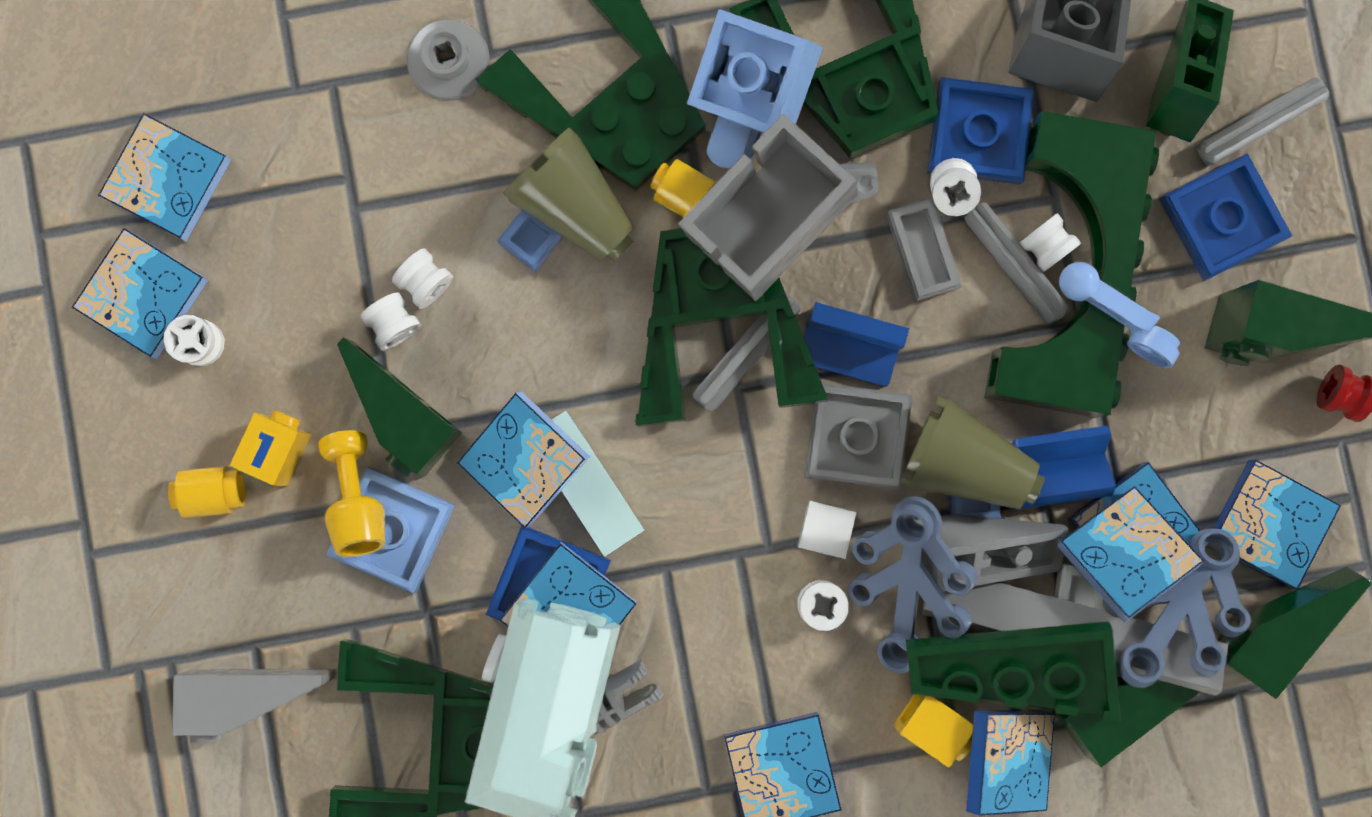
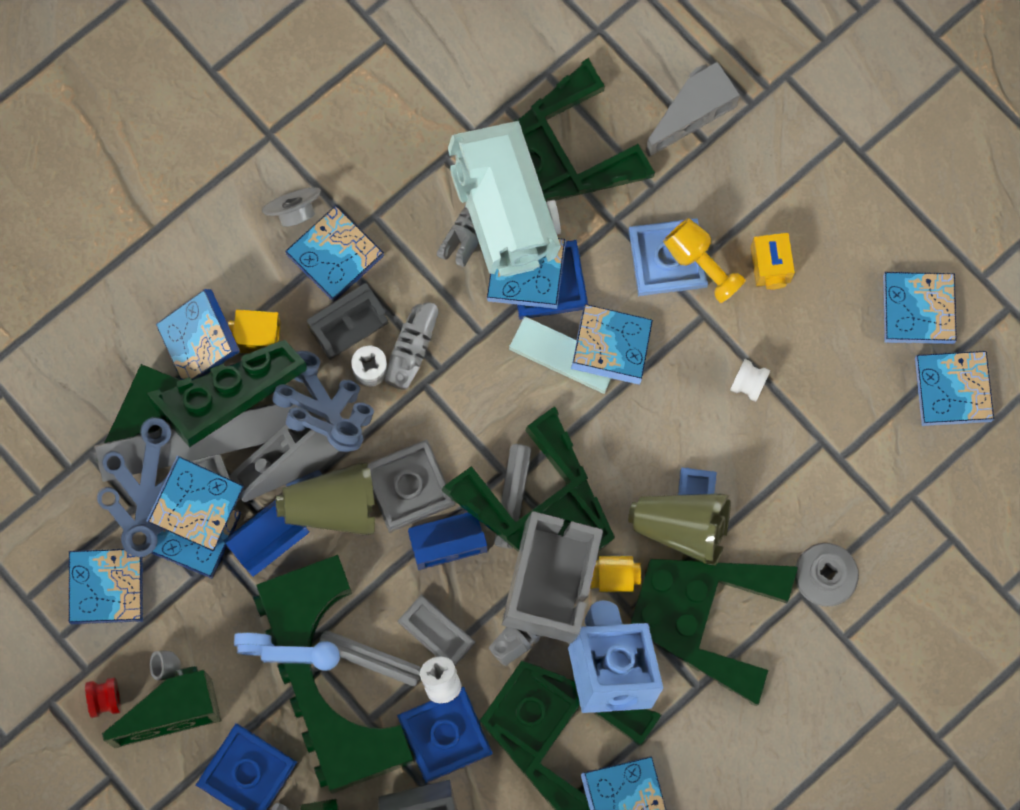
camera: 145 degrees right, 10 degrees down
(183, 336) = (868, 290): white wheel -> none
(207, 491) = (794, 212): yellow brick -> none
(399, 417) = (704, 325): dark green slope -> none
(422, 278) = (747, 418): white wheel -> none
(758, 600) = (411, 345): none -> light grey hinge
(817, 675) = (347, 321): none -> dark grey hinge
(826, 529) = (394, 415): white tile -> none
(1050, 243) = (356, 681): white wheel -> none
(1255, 389) = (164, 664): none -> light grey hinge
(1292, 629) = (67, 515): dark green slope -> none

